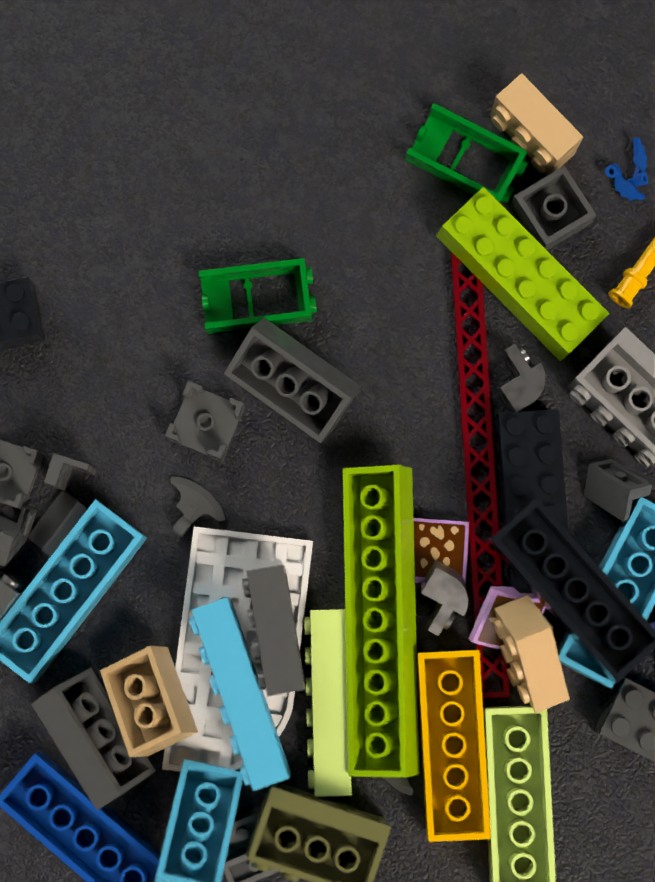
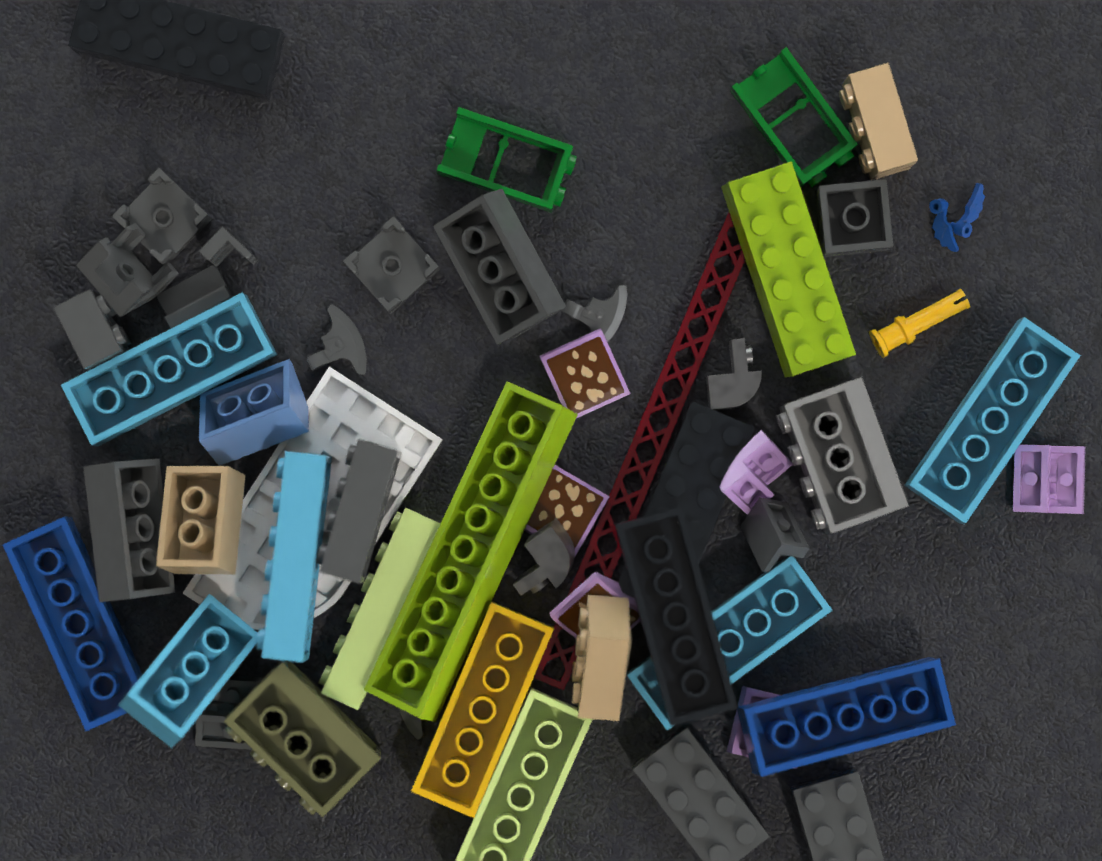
camera: 25 degrees right, 5 degrees up
(150, 594) = (252, 413): none -> medium blue slope
(390, 383) = (601, 313): none -> dark grey piece
(401, 433) = (585, 373): none -> reddish brown slope
(574, 445) = (753, 471): none -> lavender slope

